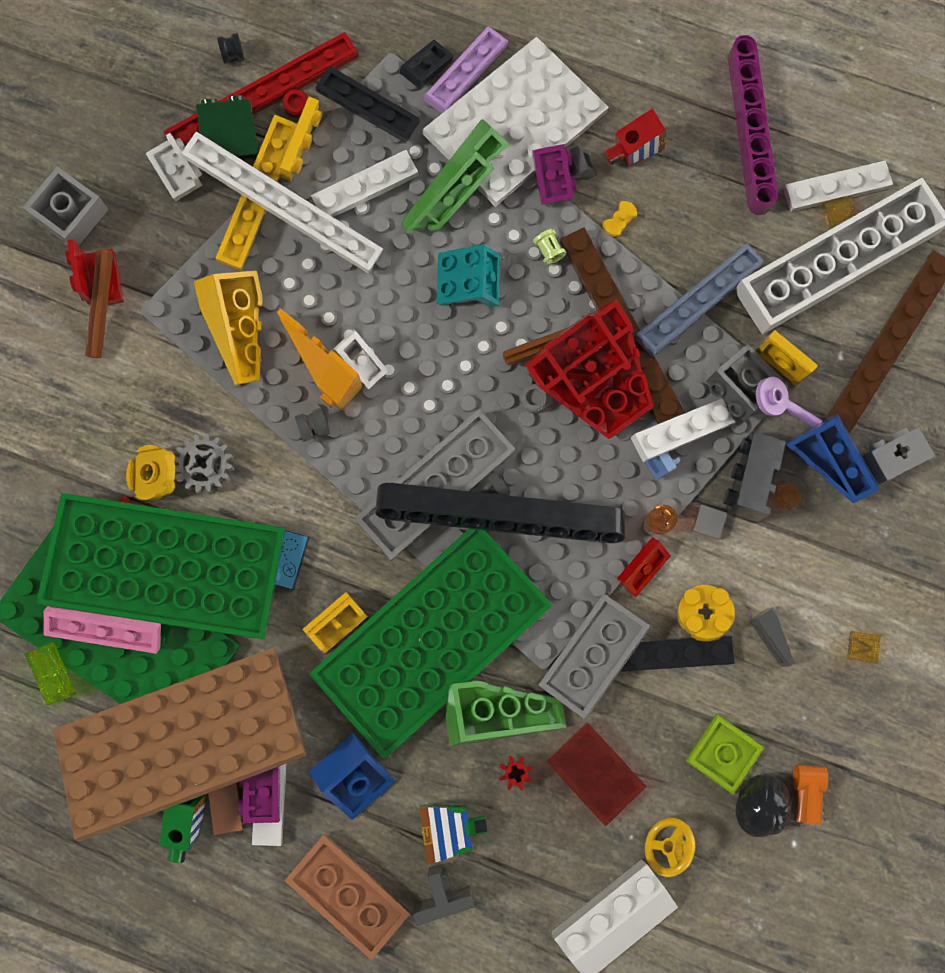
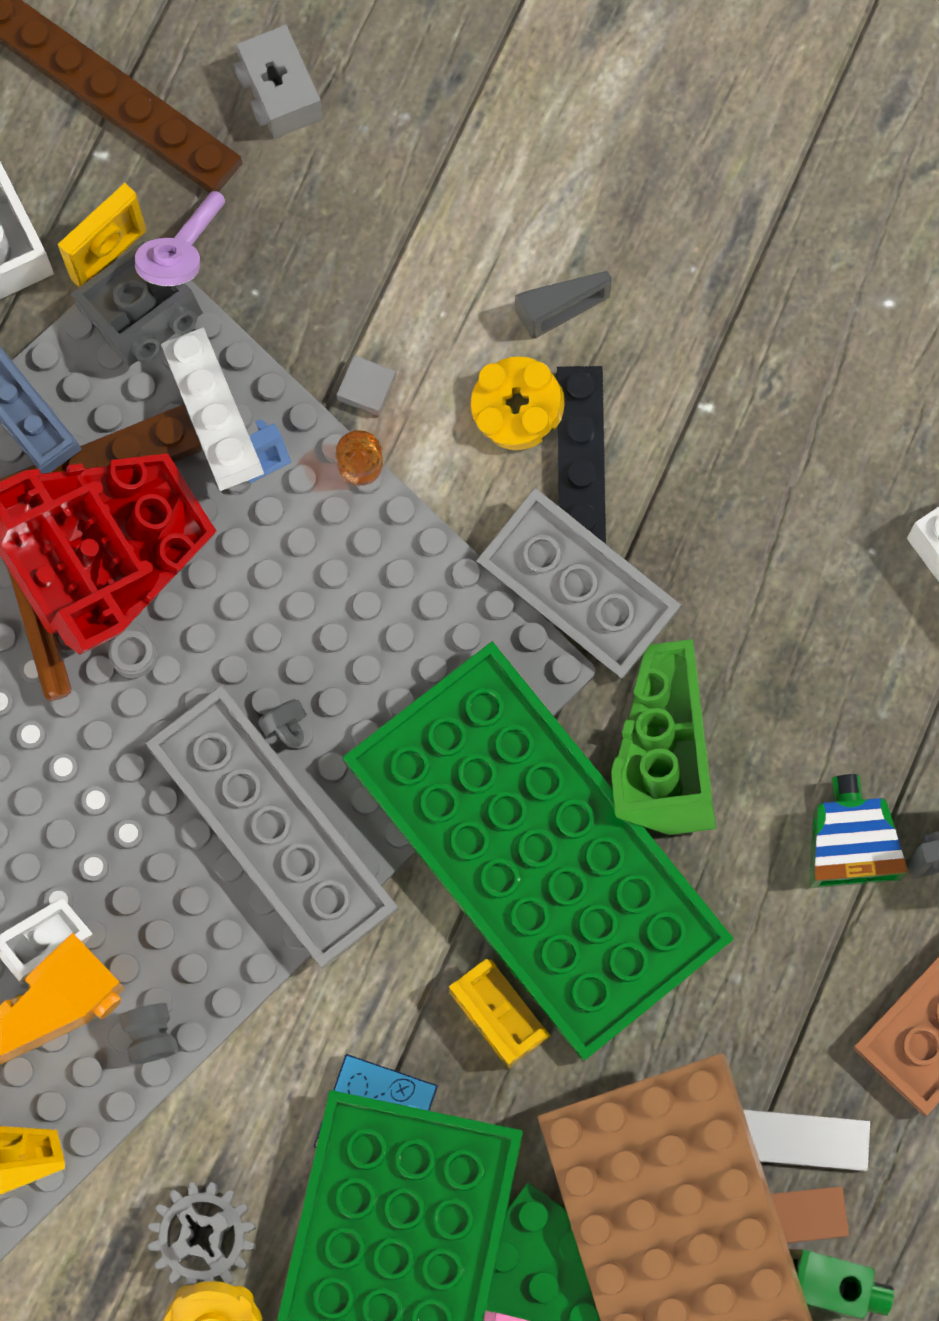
camera: 80 degrees left, 5 degrees down
(261, 798) = (793, 1148): magenta bracket -> none
(351, 777) = (758, 995): blue slope -> none
(500, 513) = (331, 718): black beam -> none
(523, 776) = (770, 713): red gear -> none
(596, 774) = (769, 597): clear red plate -> none
(644, 567) = (435, 494): red plate -> none
(677, 850) = (899, 472): yellow piece -> none
(724, 754) = (745, 395): lime tile -> none
(754, 477) = (298, 305): black wedge -> none
(764, 806) = (830, 340): black piece -> none
(781, 499) = (333, 269): clear orange plate -> none
(810, 785) = (800, 269): orange piece -> none
(836, 457) = (273, 177): blue wedge -> none
(863, 647) = (585, 167): clear yellow tile -> none

